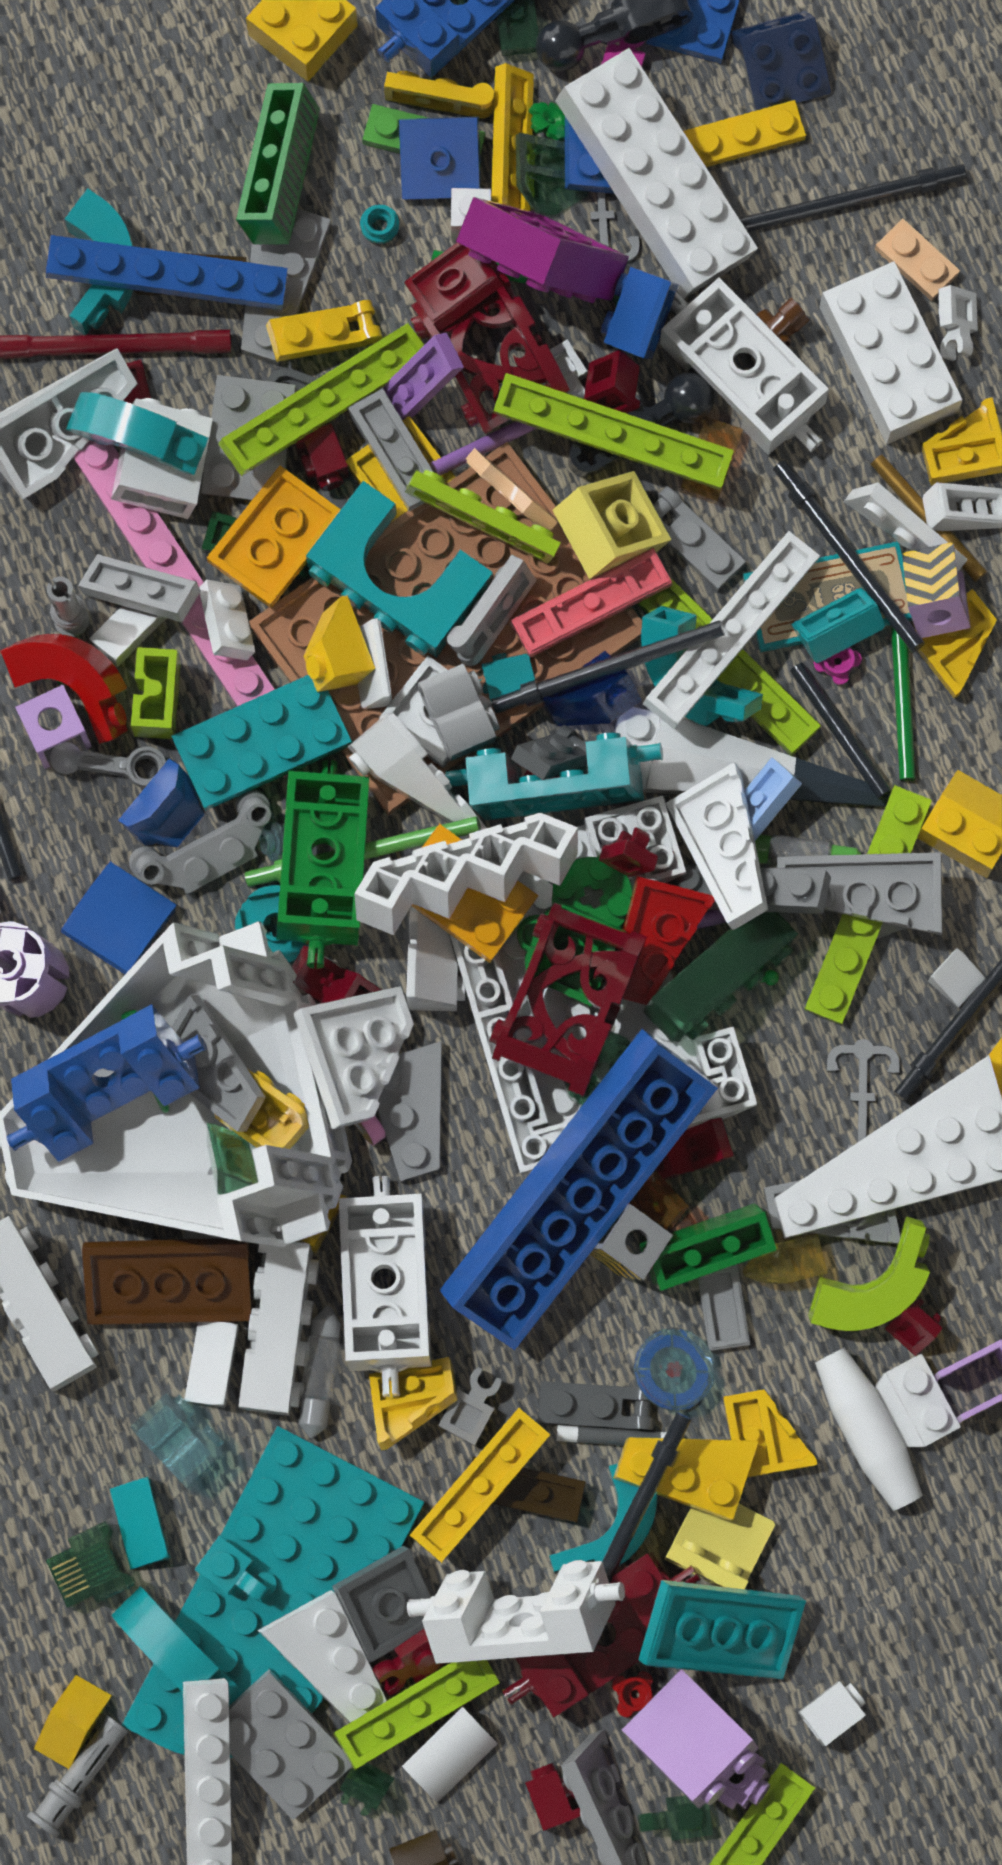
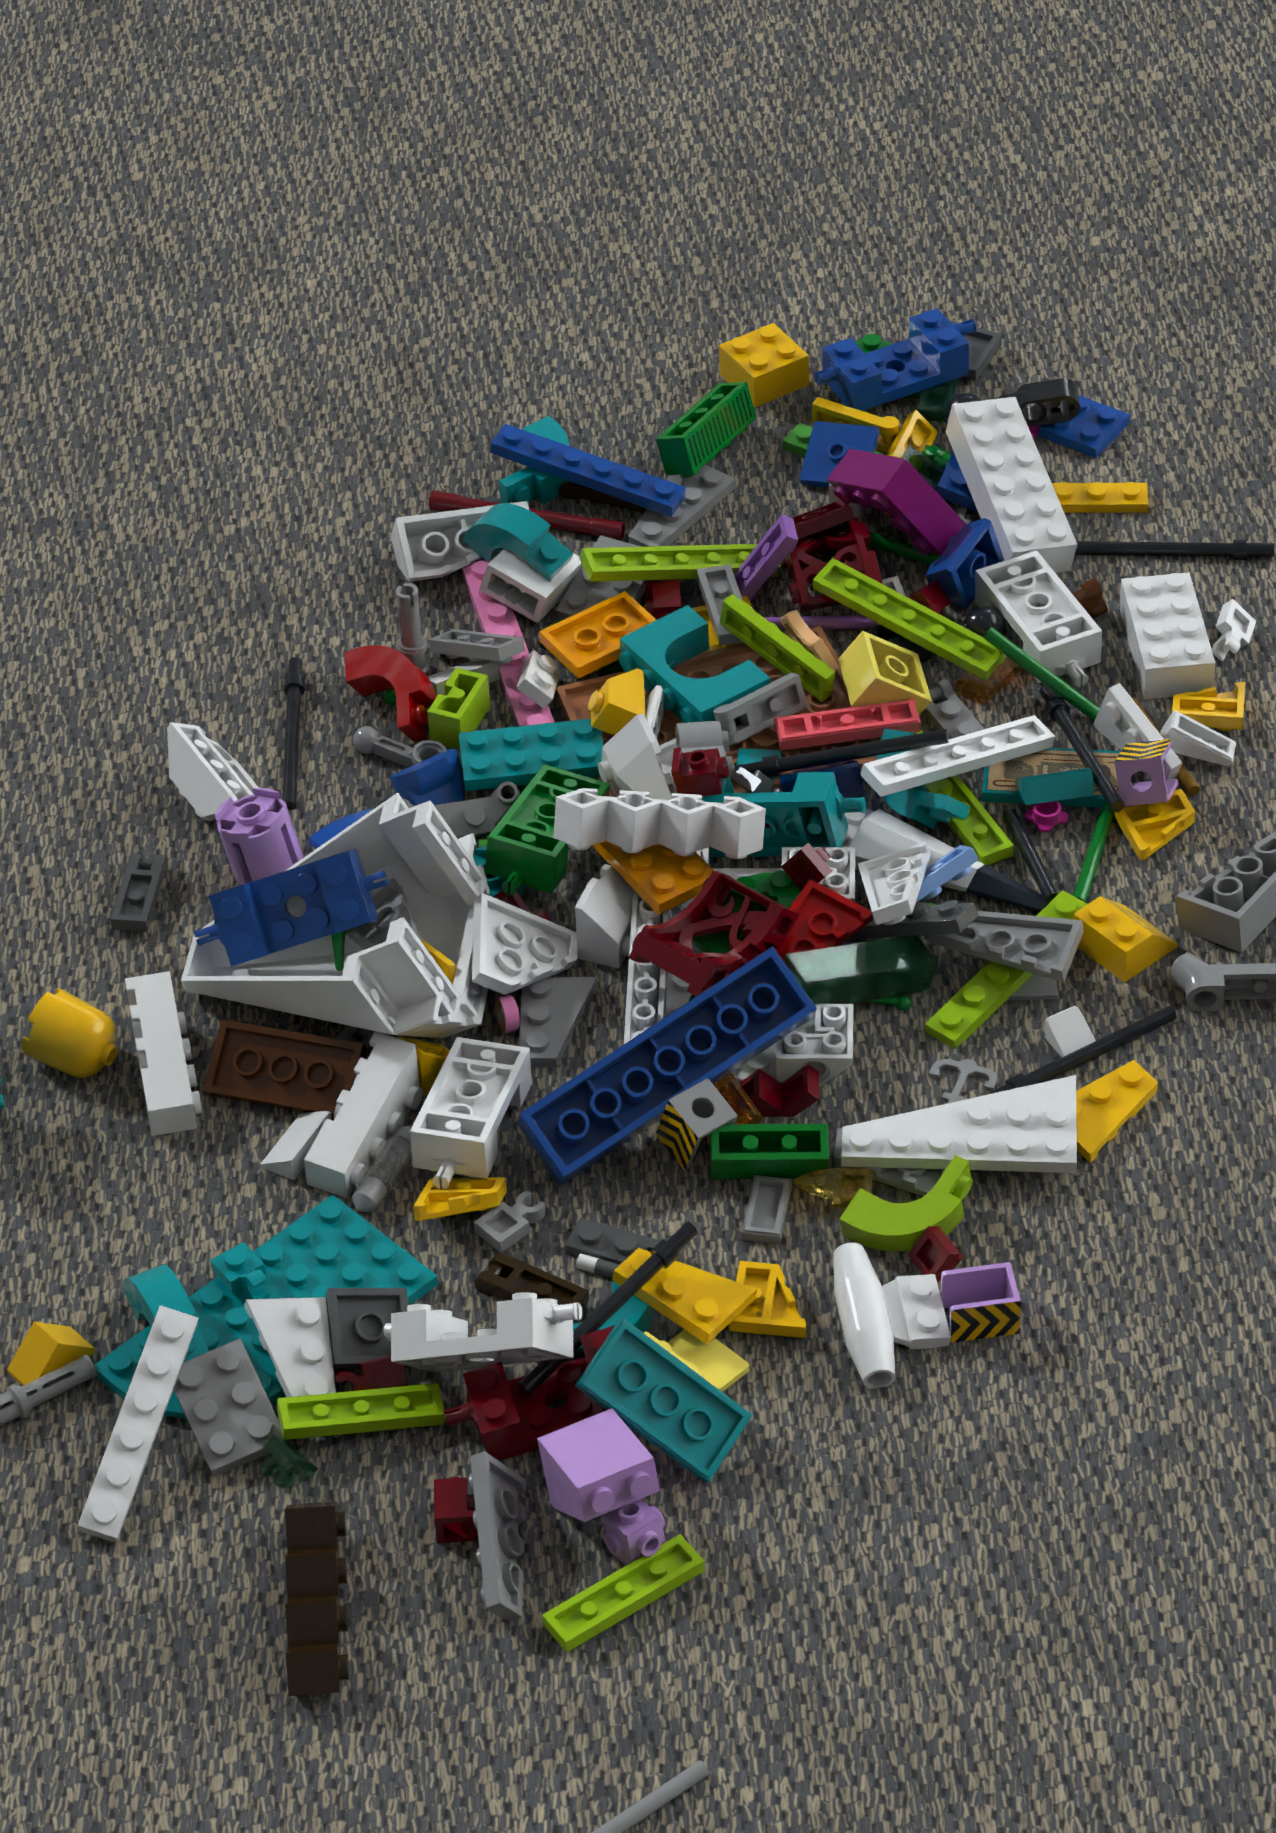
camera: 20 degrees right, 35 degrees down
(45, 739) = (350, 699): lavender piece -> none
(89, 1568) = (120, 1249): clear green piece -> none
(140, 1523) = (181, 1234): teal slope -> none
(178, 1440) = (241, 1181): clear light blue brick -> none
(323, 331) = (683, 531): yellow plate -> none
(379, 212) = (774, 488): teal plate -> none
(449, 1754) = (375, 1455): white brick -> none
(480, 1485) = (490, 1261): yellow plate -> none
(490, 777) = (699, 771): none -> dark red brick
(674, 1369) = (717, 1236): clear light blue tile -> none
(680, 1817) = (570, 1562): clear green plate -> none
(780, 466) = (1042, 673): none -> green bar
(783, 60) = (1147, 455): dark blue bracket -> none
(833, 1712) = (744, 1510): white brick -> none
(917, 259) = (1213, 591): light nougat plate -> none

